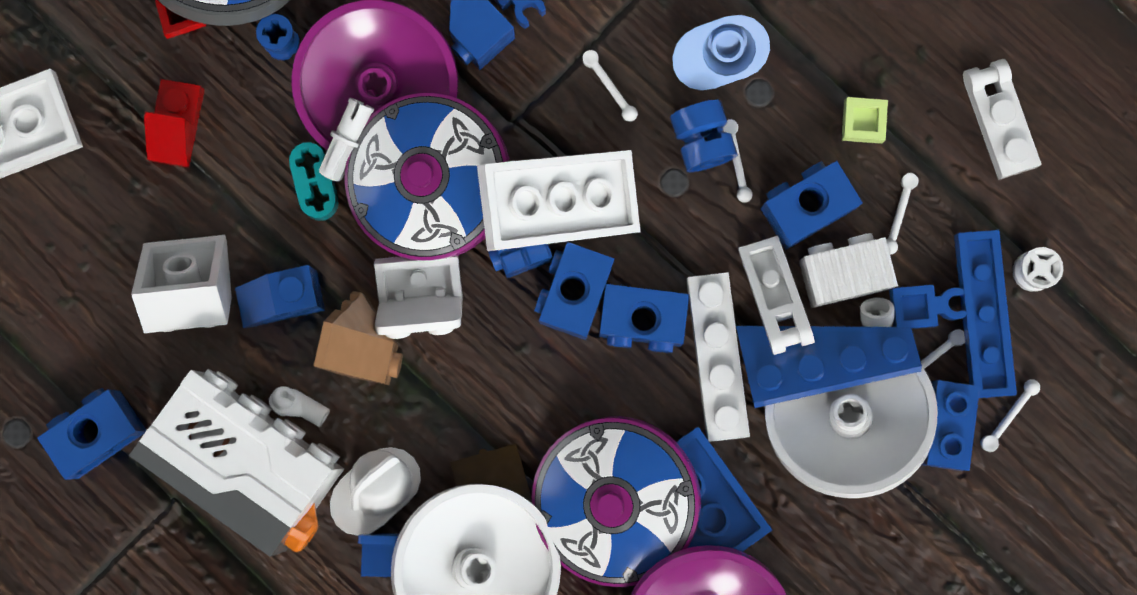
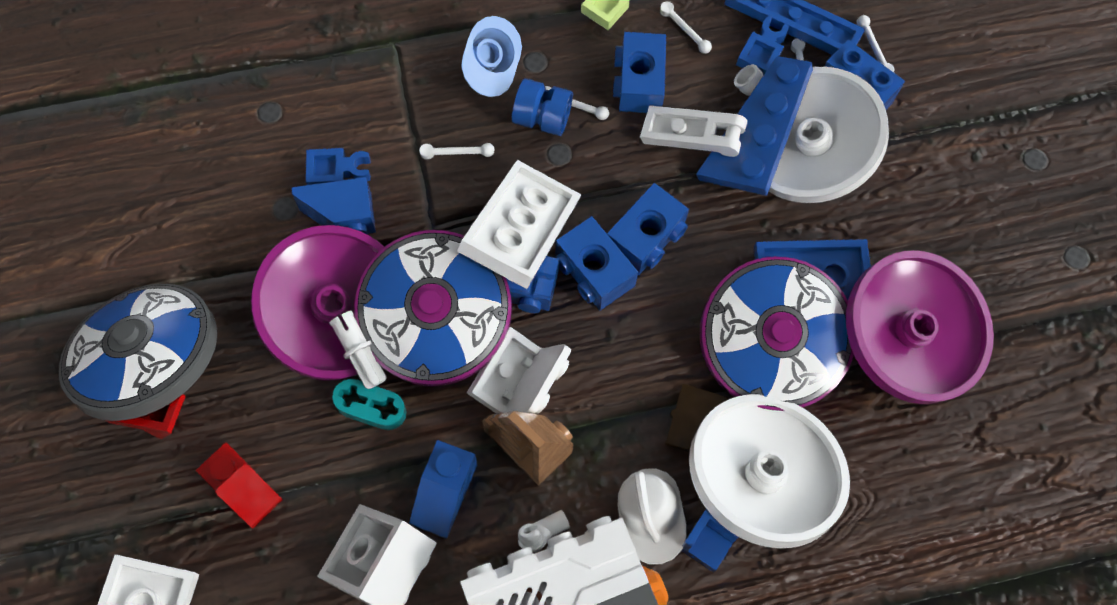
camera: 60 degrees left, 15 degrees down
(271, 27) = (231, 344): blue bush -> none
(717, 357) = (713, 202): white plate -> none
(847, 271) = (707, 76): white brick -> none

